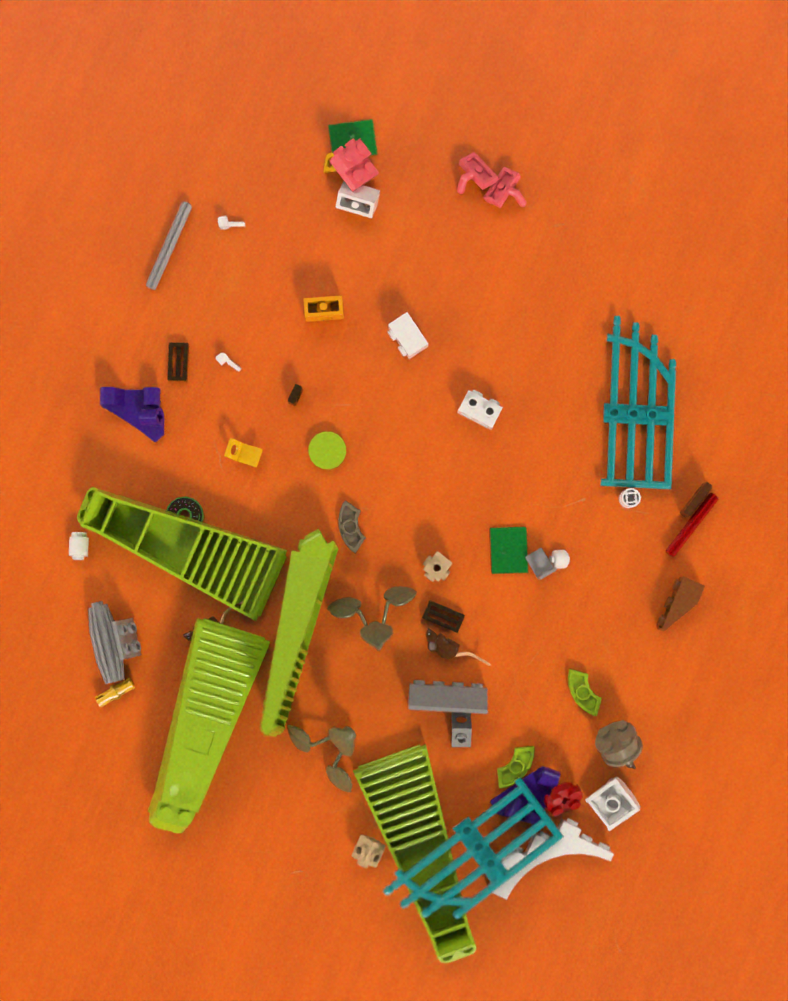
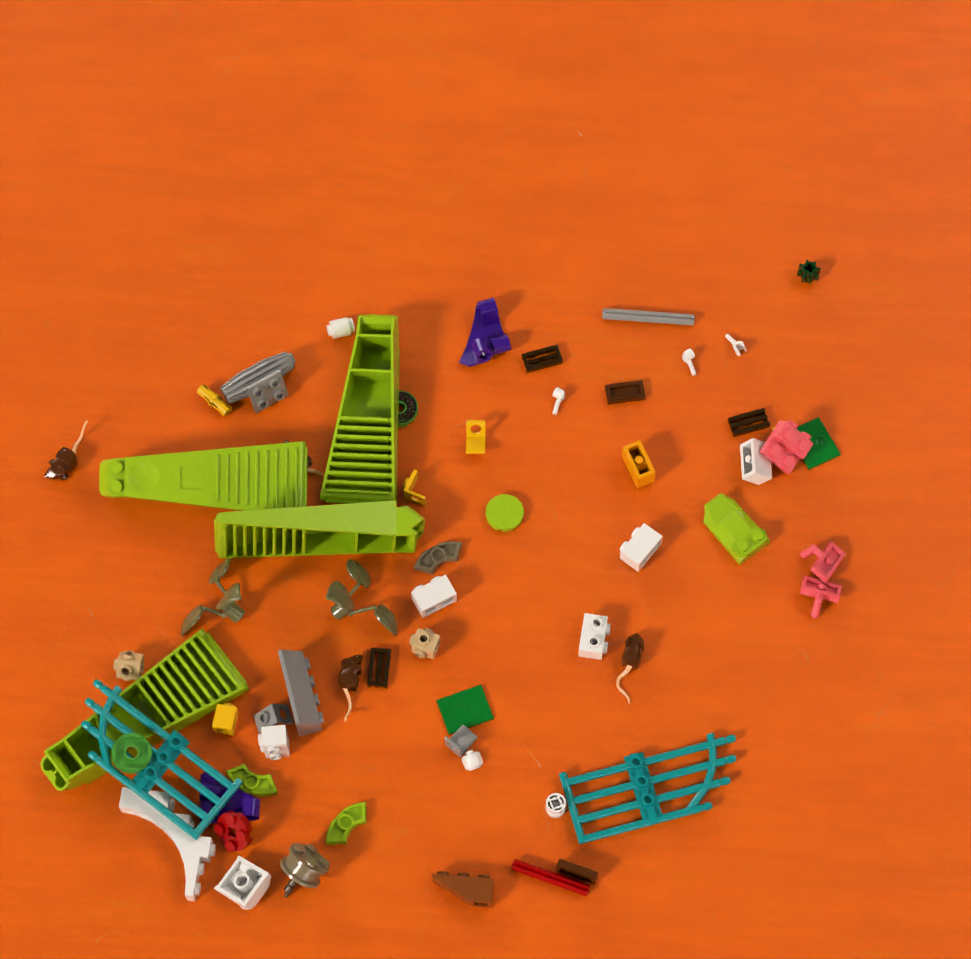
camera: 75 degrees right, 20 degrees down
(132, 857) = (65, 461): none -> reddish brown animal
(172, 72) = (808, 272): none -> dark green gear
(228, 173) = (737, 345): none -> white hand
(241, 295) = (625, 392): none -> reddish brown tile
(270, 532) = (408, 487): none -> yellow bracket
(295, 395) = (547, 466): dark brown tile -> none
(312, 176) = (763, 417): none -> dark brown tile
(392, 543) = (433, 595): none -> white brick
(415, 243) = (734, 528): none -> lime slope
(449, 774) = (225, 719): none -> yellow brick
(456, 872) = (128, 764): none -> bright green tile
(491, 737) = (274, 742): none -> white brick
(510, 382) = (631, 658): none -> reddish brown animal

